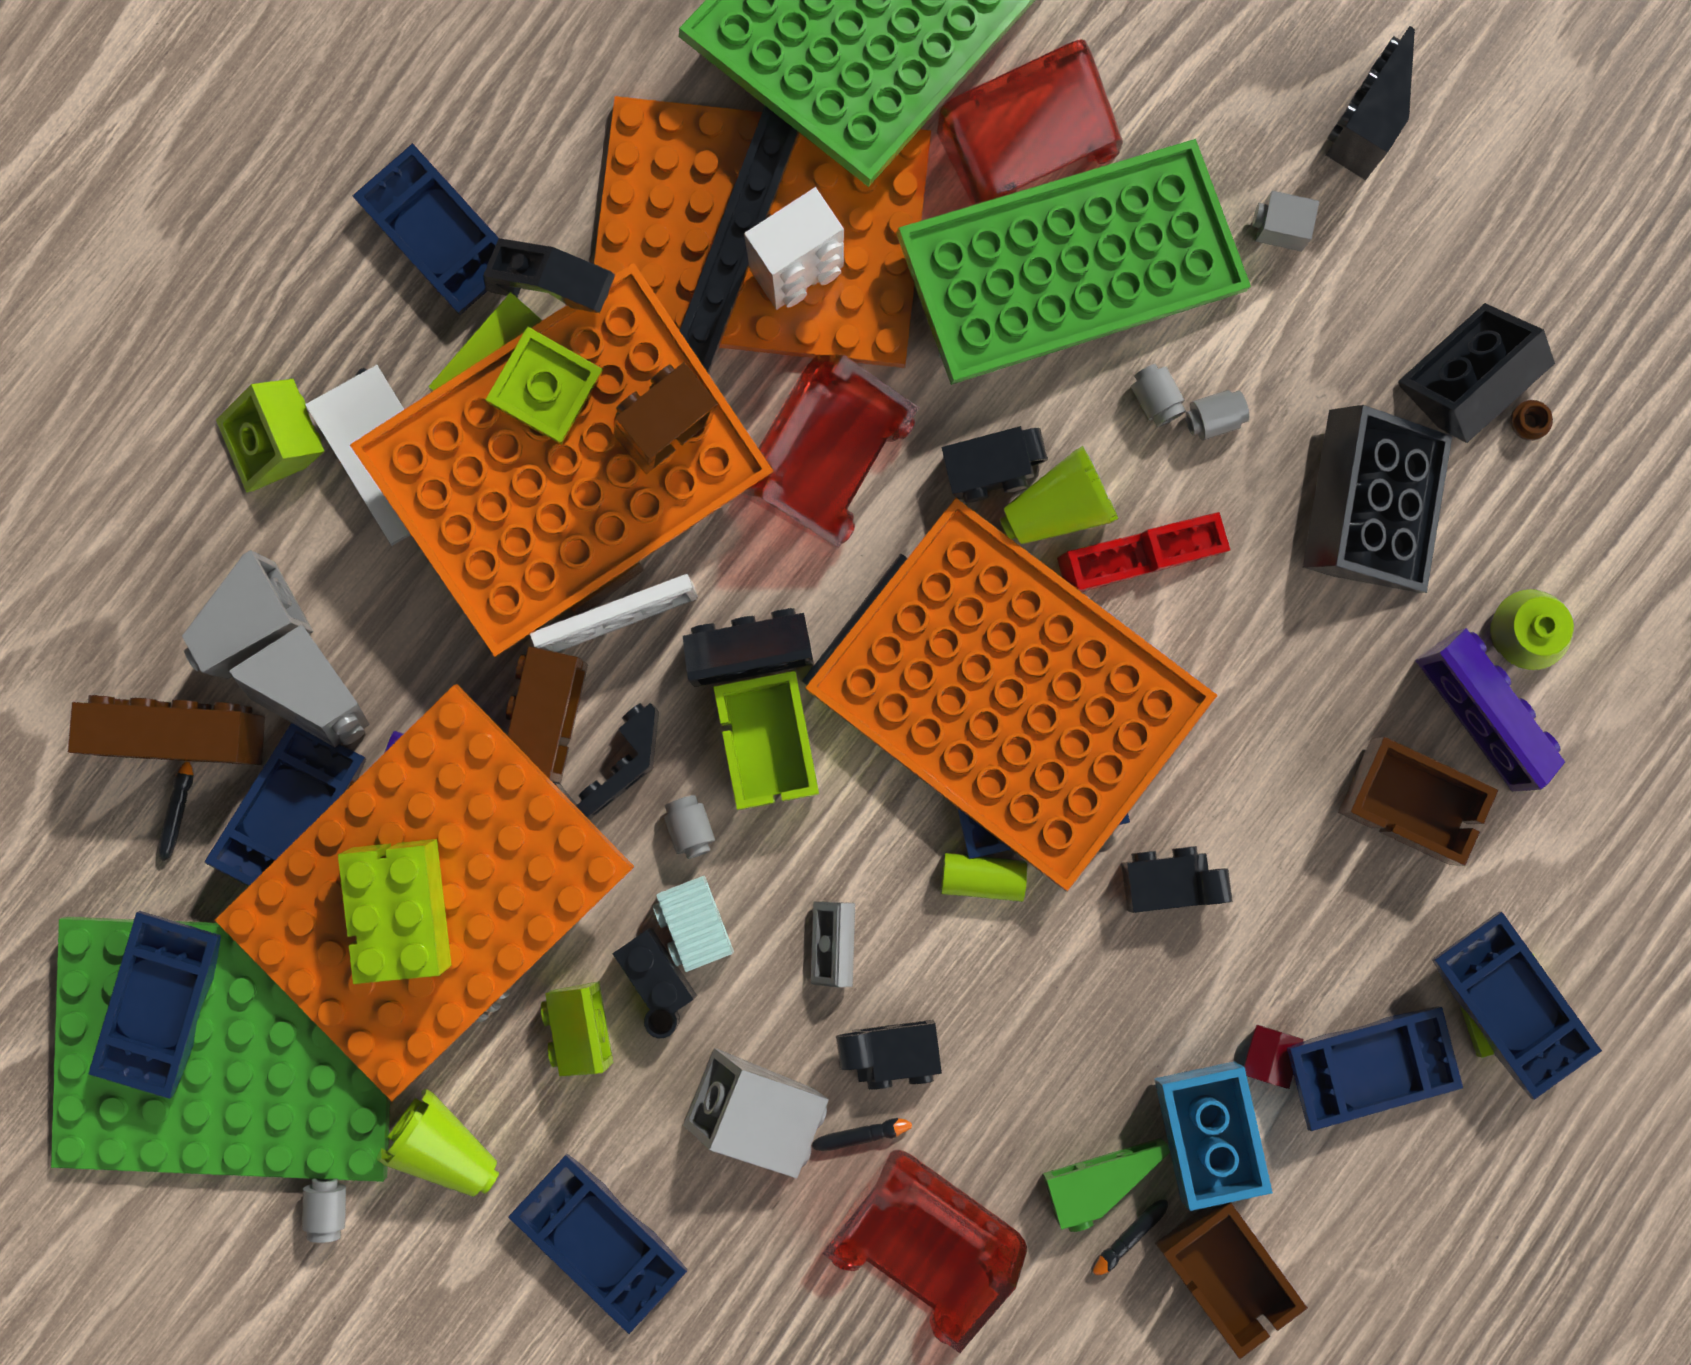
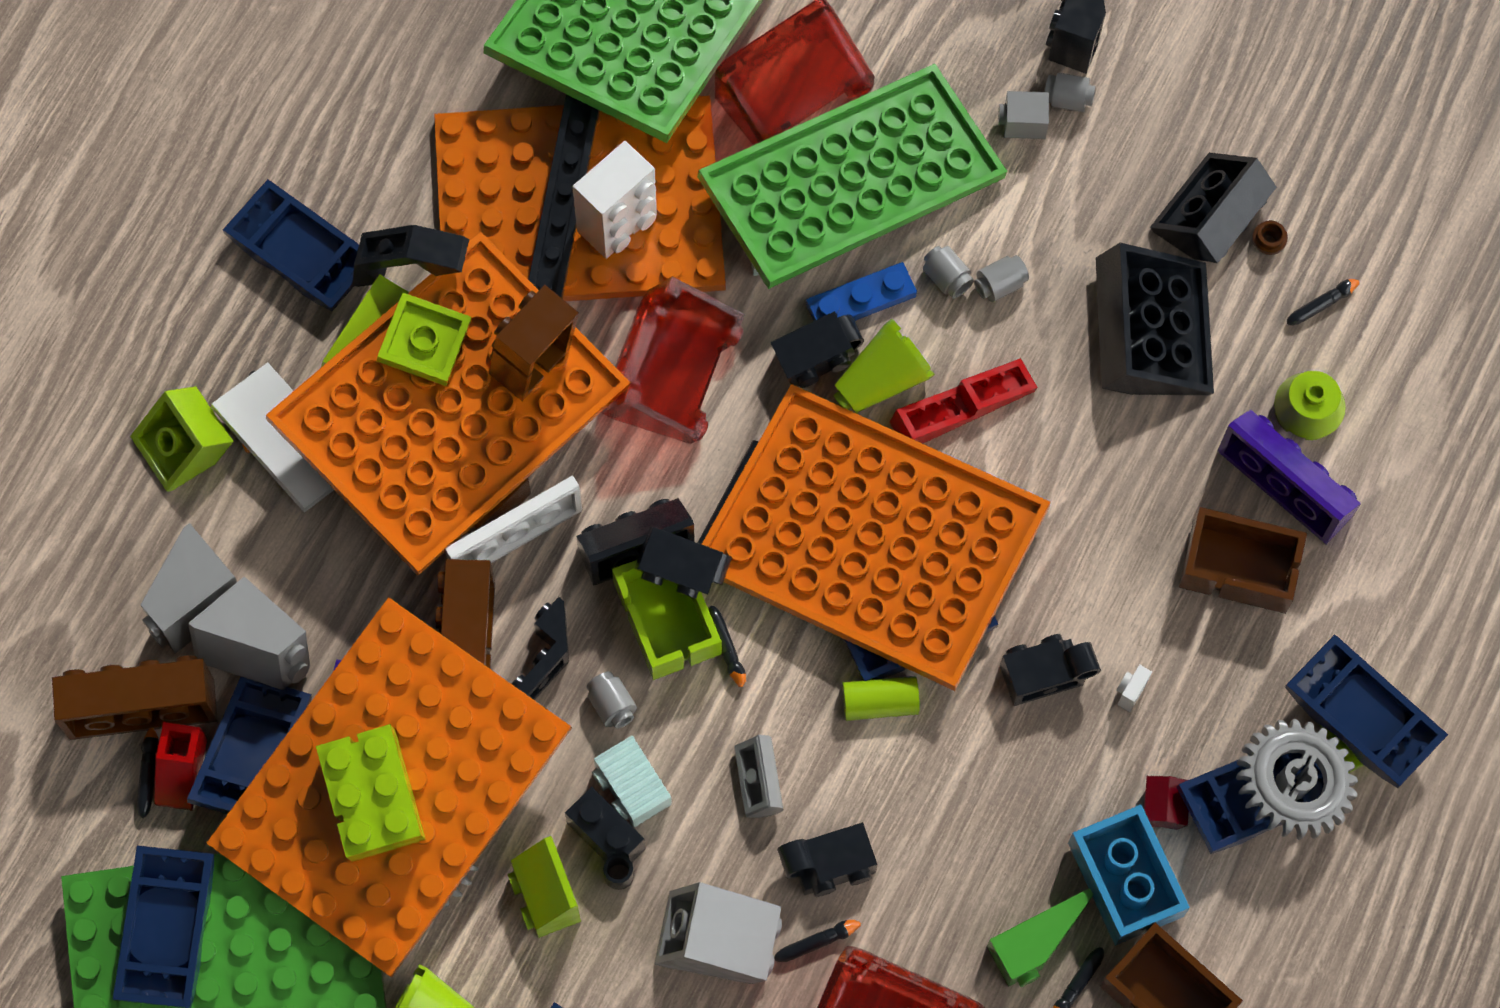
camera: 10 degrees left, 15 degrees down
(205, 811) = (178, 764): none -> red slope
(789, 701) = (681, 562): none -> black hinge
(831, 813) = (729, 653): none -> black piece
(1057, 405) = (865, 294): none -> blue plate
(1263, 921) = (1132, 687): none -> white plate
(1343, 201) = (1070, 91): none -> light grey brick
(1423, 1070) = (1275, 796): none -> light grey gear
(1599, 498) = (1322, 302): none -> black piece

